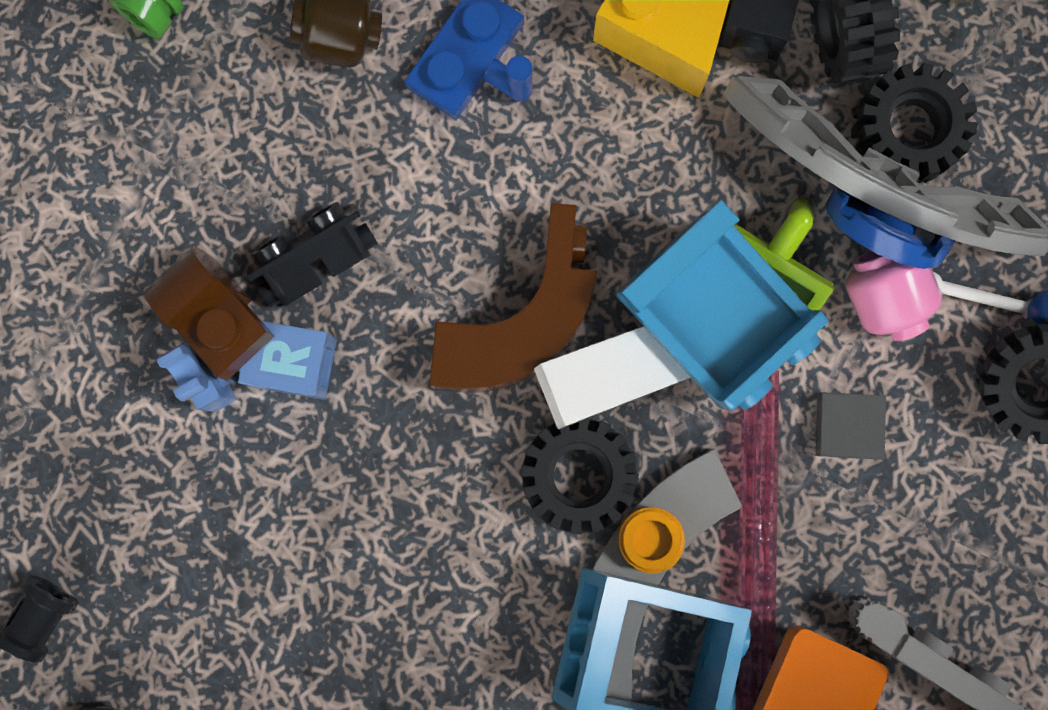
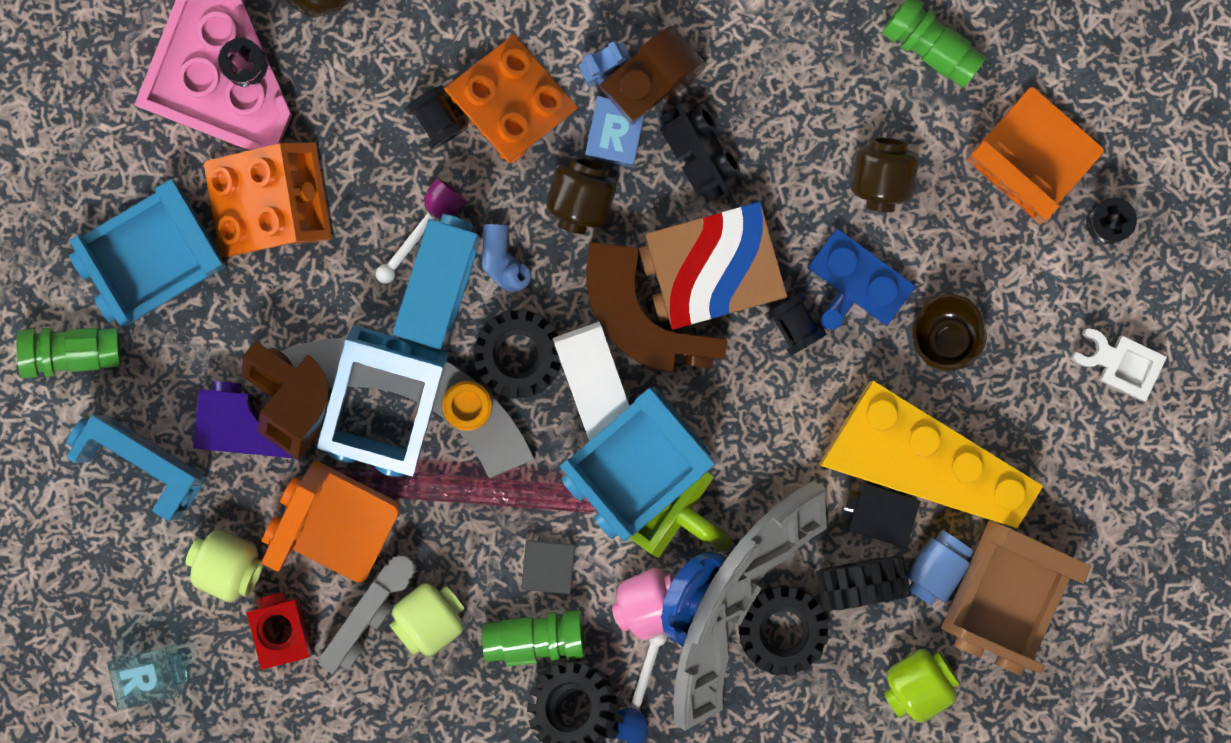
camera: 90 degrees right, 5 degrees up
(249, 499) = (511, 99): none -> orange hinge
(273, 595) = (436, 117): none -> black bush
(371, 401) = (581, 195): none -> dark brown head
(387, 585) = (438, 200): none -> hinge
(457, 228) = (712, 266): none -> panel
(464, 502) = (499, 263): none -> medium blue arm
(490, 588) = (437, 282): none -> dark azure window
(526, 125) = (796, 323): none -> black bush
(937, 582) = (427, 619): none -> yellowish green head
(948, 448) = (526, 639): none -> bright green axle

